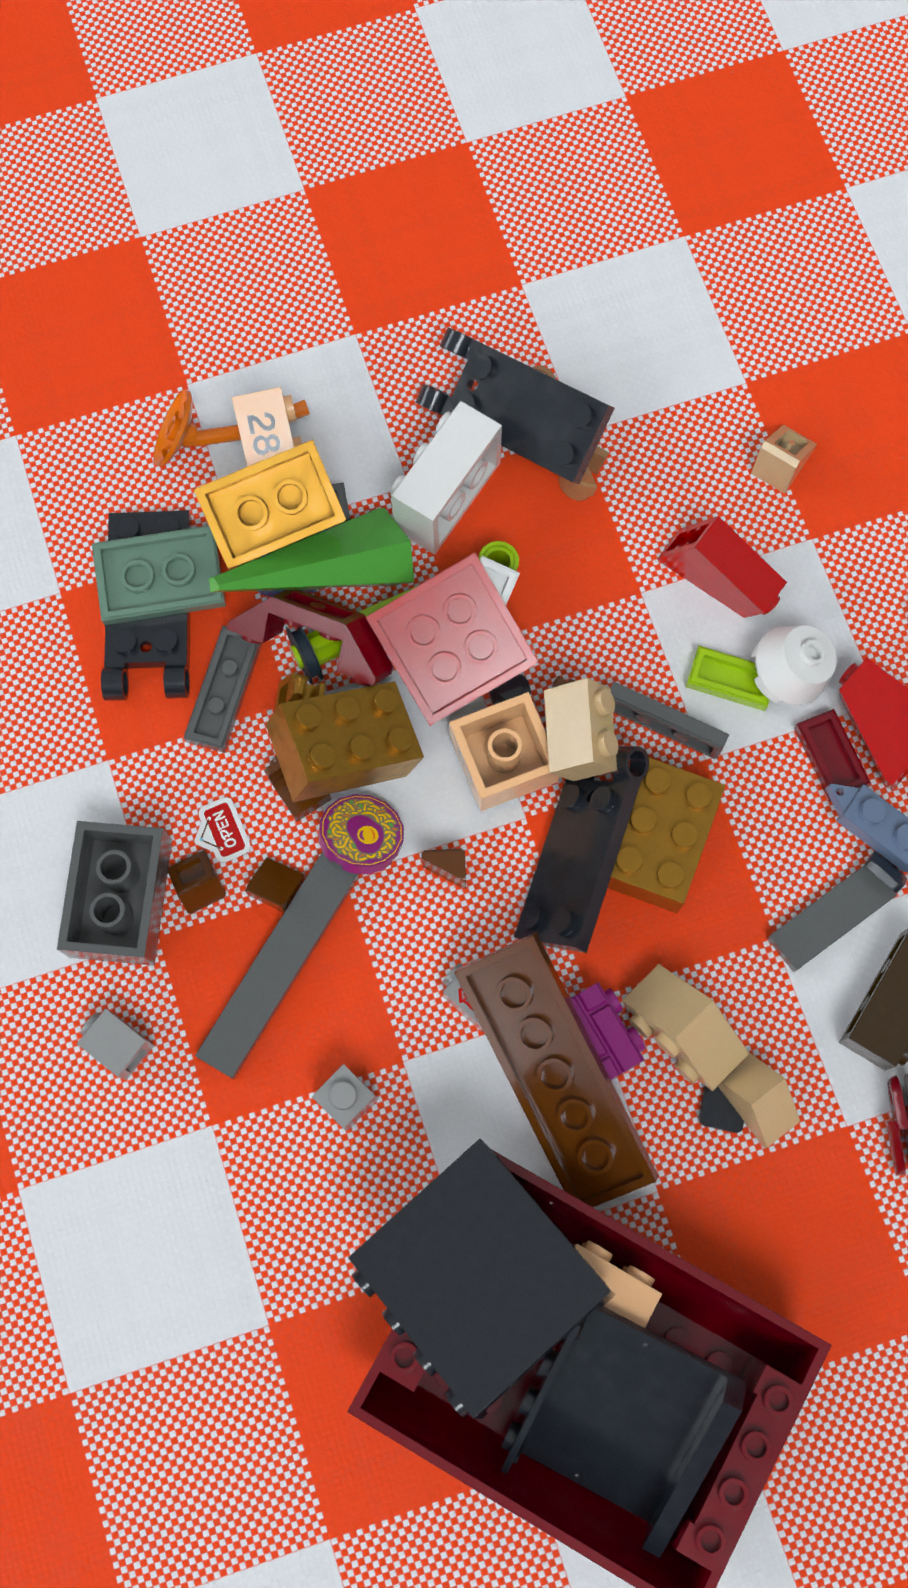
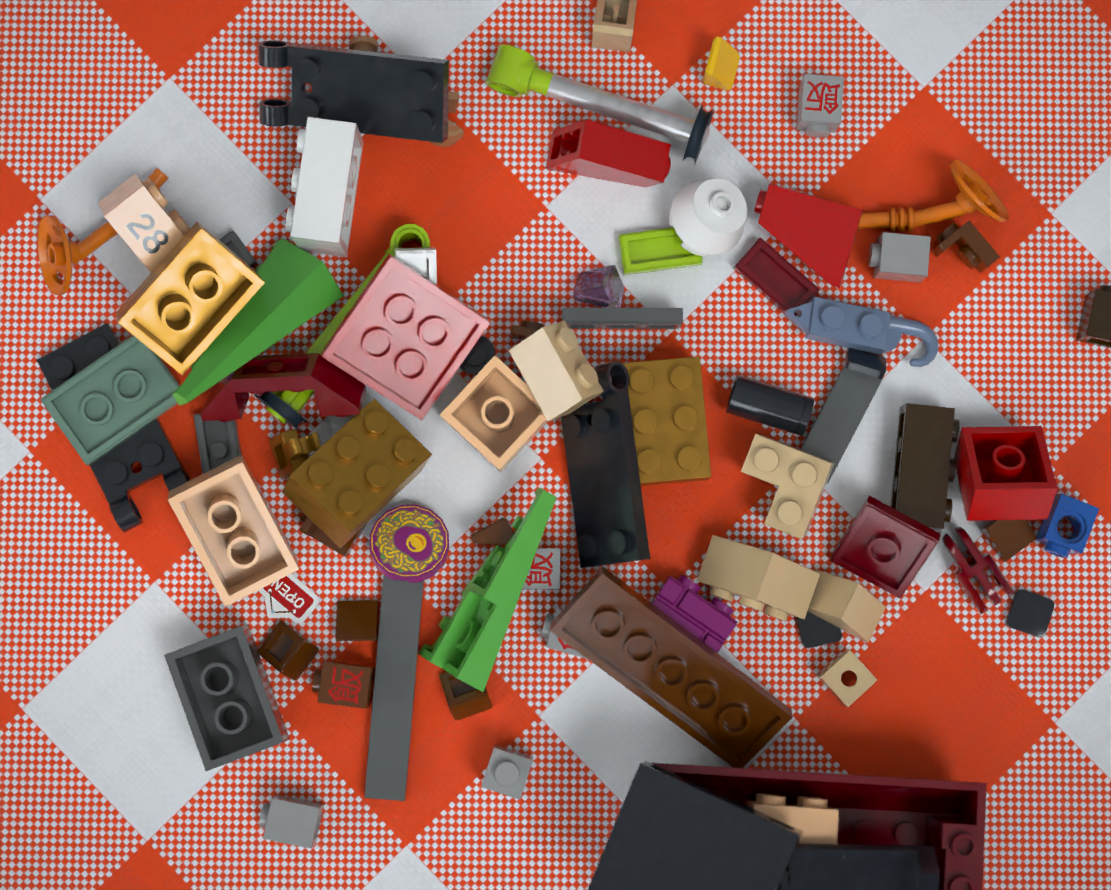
camera: 30 degrees left, 10 degrees up
(202, 738) = (233, 530): none -> light nougat brick
(232, 936) = (344, 684): none -> reddish brown brick
(344, 1002) = (463, 698): none -> reddish brown slope
(394, 933) = (482, 617): none -> bright green wedge
(467, 914) = (544, 570): none -> light grey brick
(658, 683) = (600, 287): none -> clear purple slope
(672, 462) = (517, 73): none -> piece
(712, 1168) = (832, 678): none -> tan piece
(769, 948) = (799, 479): none -> tan brick
(772, 868) = (770, 405): none -> black pin
(827, 1058) = (885, 547): none -> dark red tile
(866, 538) = (721, 65): none -> yellow slope

